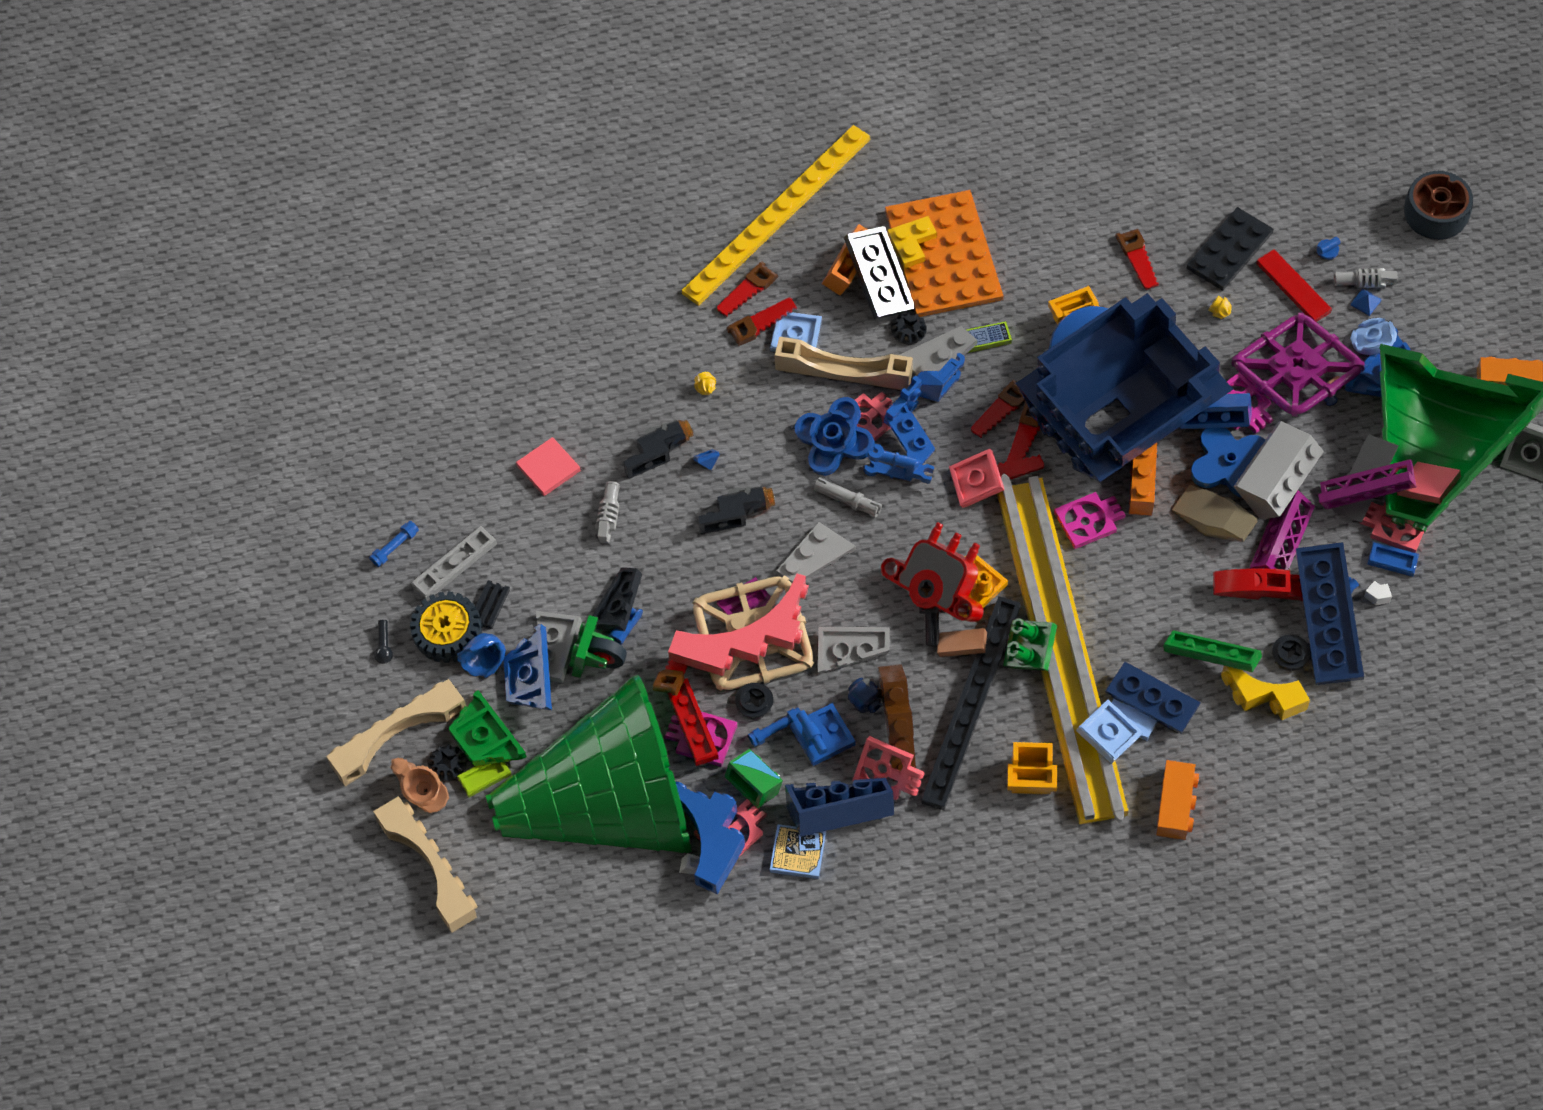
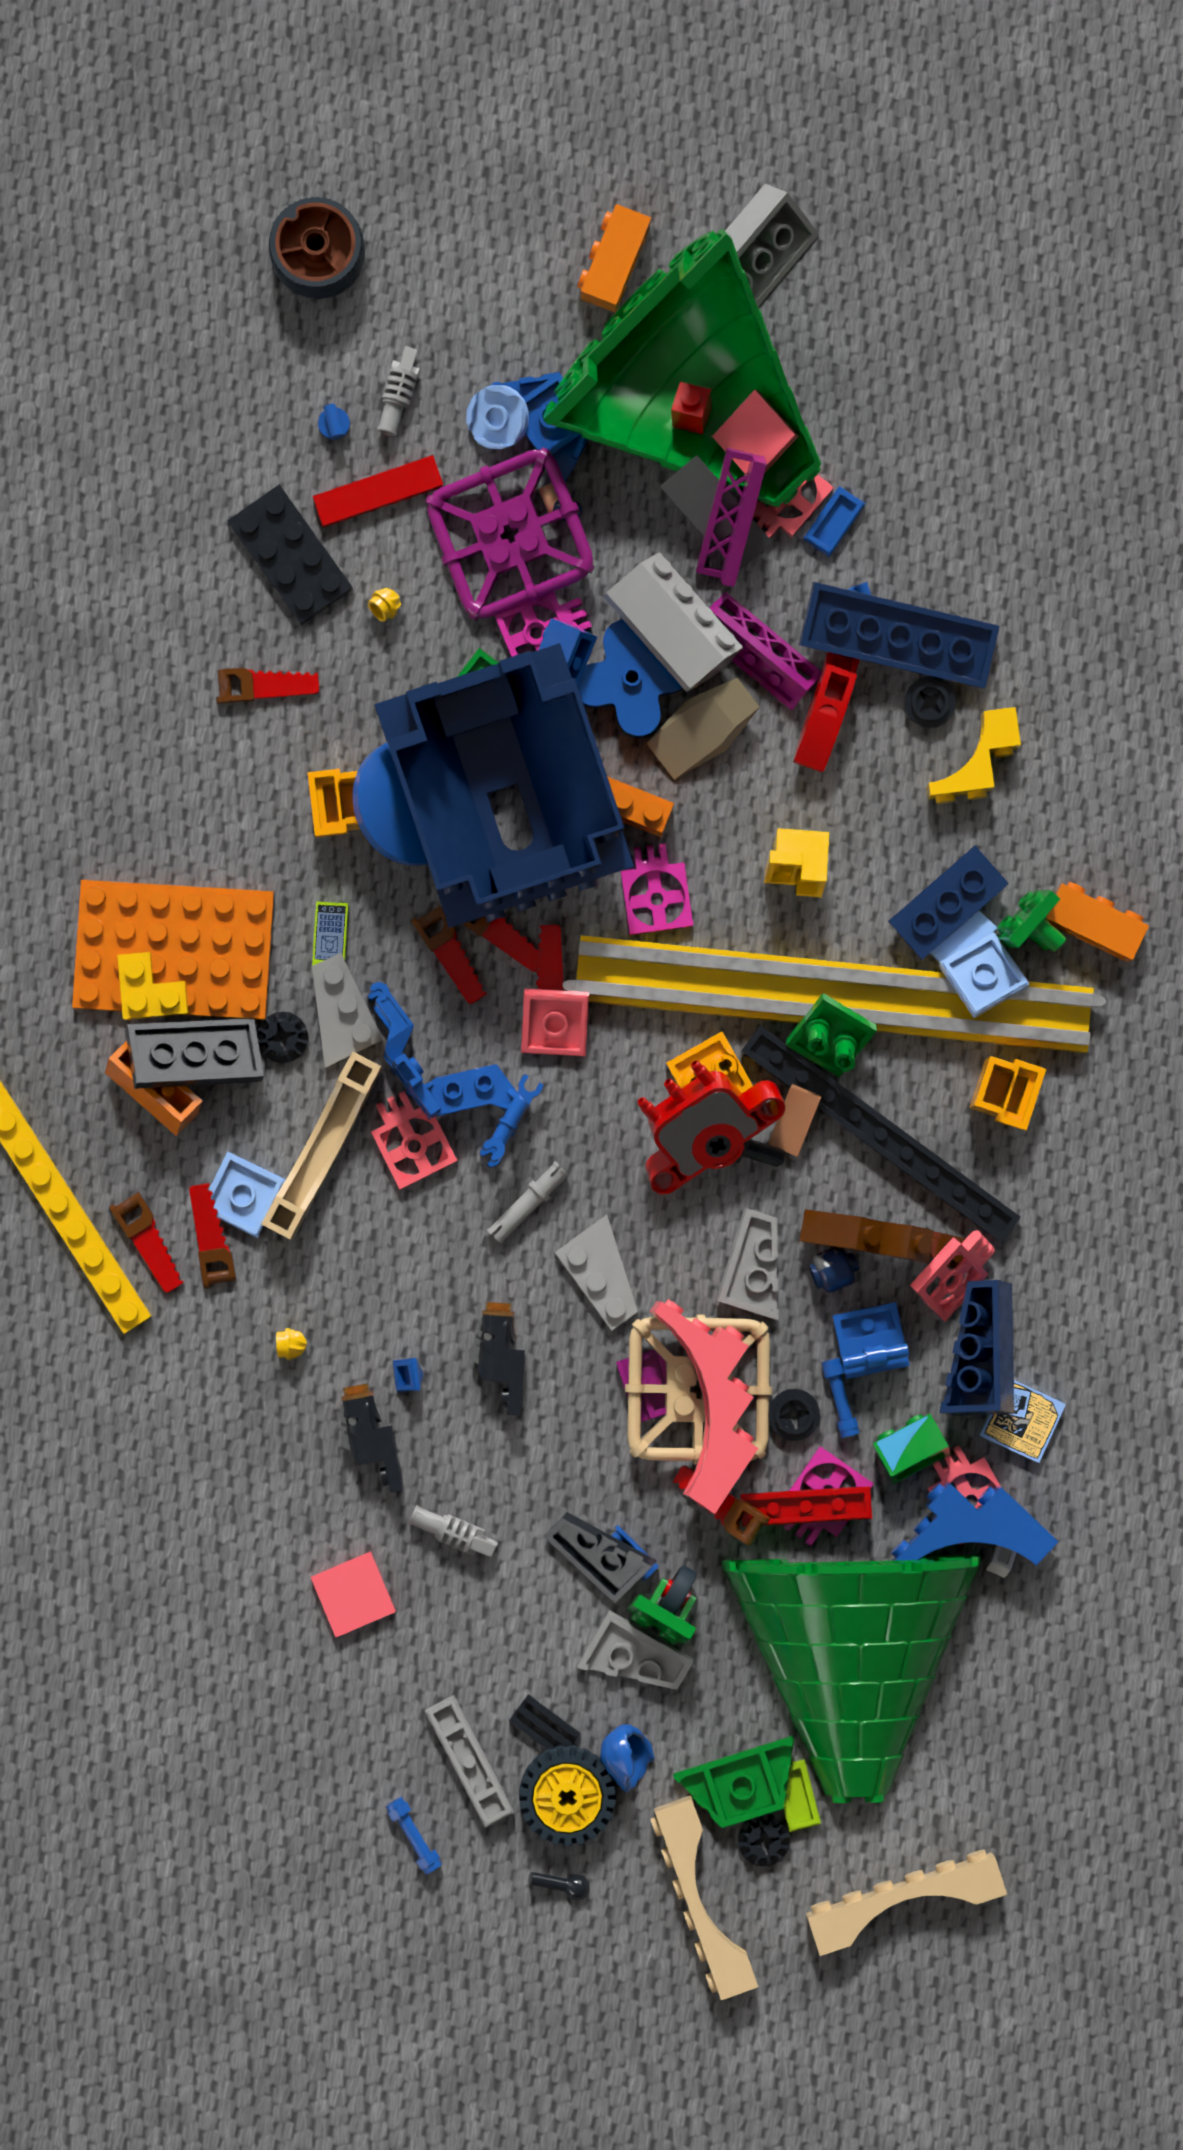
camera: 80 degrees left, 25 degrees up
(420, 778) = (781, 1900): nougat piece -> none
(528, 672) = (674, 1702): blue wing -> none
(834, 436) = (416, 1212): blue plant -> none
(1145, 592) = (799, 859): none -> yellow plate
(1159, 750) = (1031, 922): none -> green plate
(1212, 651) = (908, 804): green tile -> none
(1366, 302) = (432, 404): blue slope -> none
(1378, 593) = (880, 560): white piece -> none
(1430, 440) = (691, 408): none -> red brick

